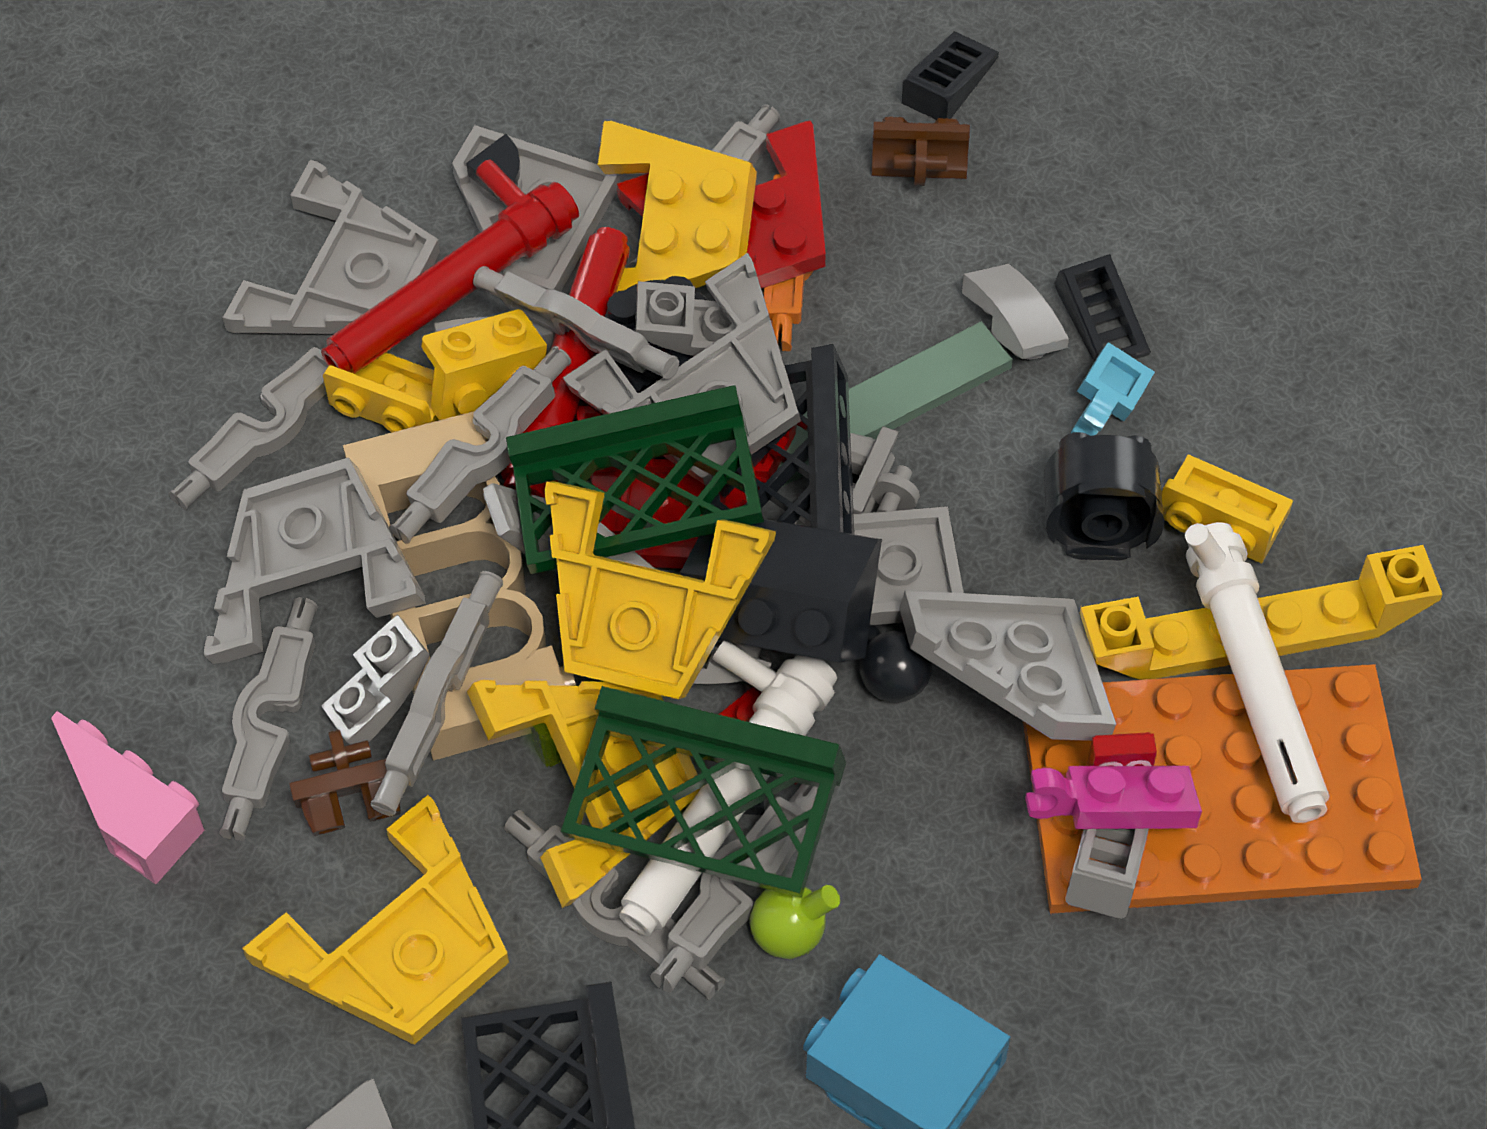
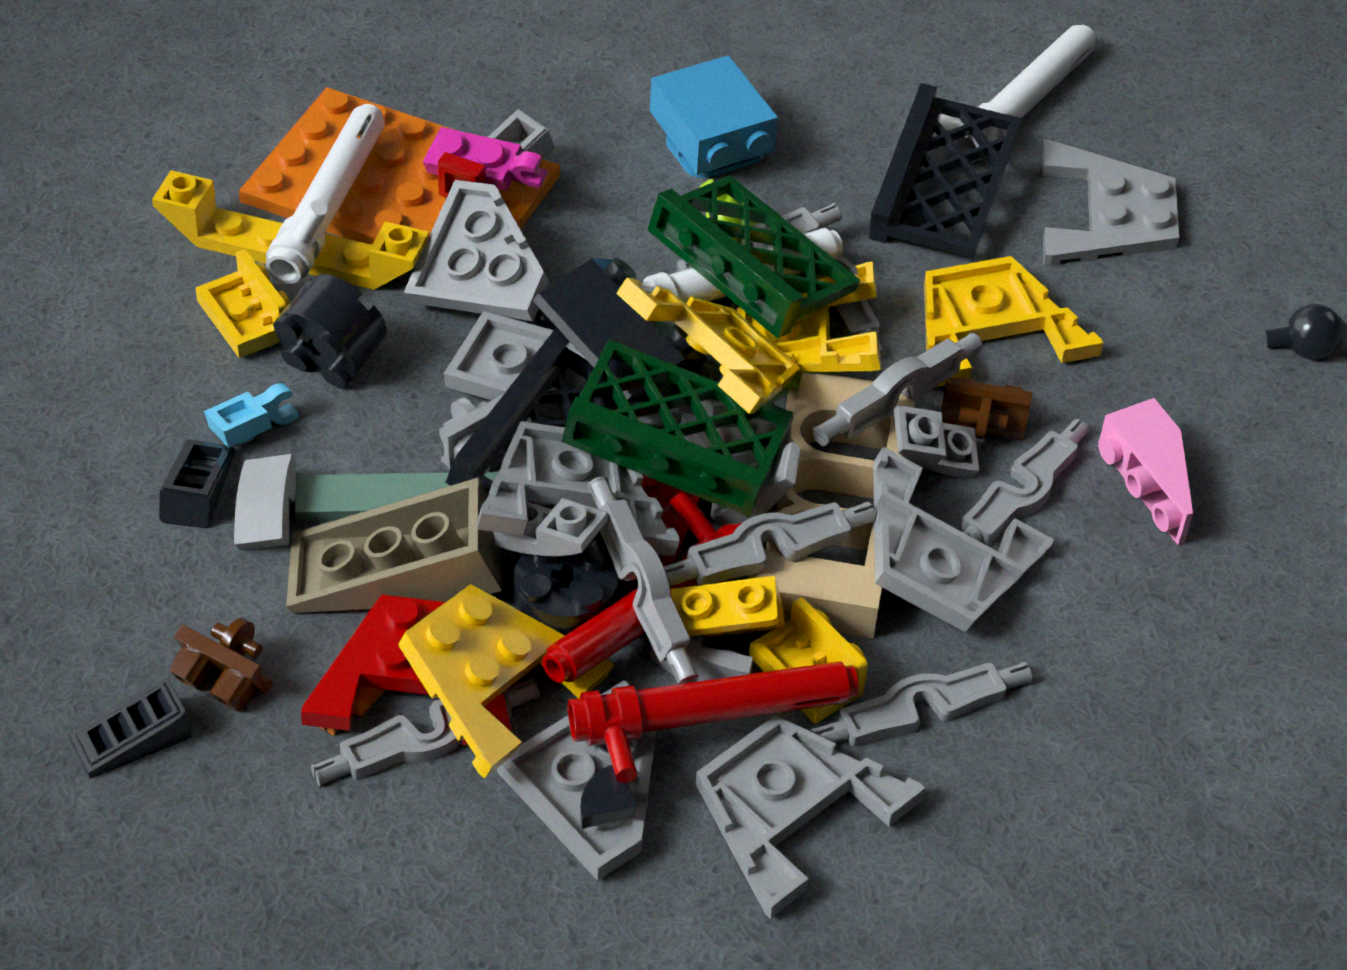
camera: 155 degrees left, 10 degrees down
(859, 299) = (402, 549): none -> dark tan slope

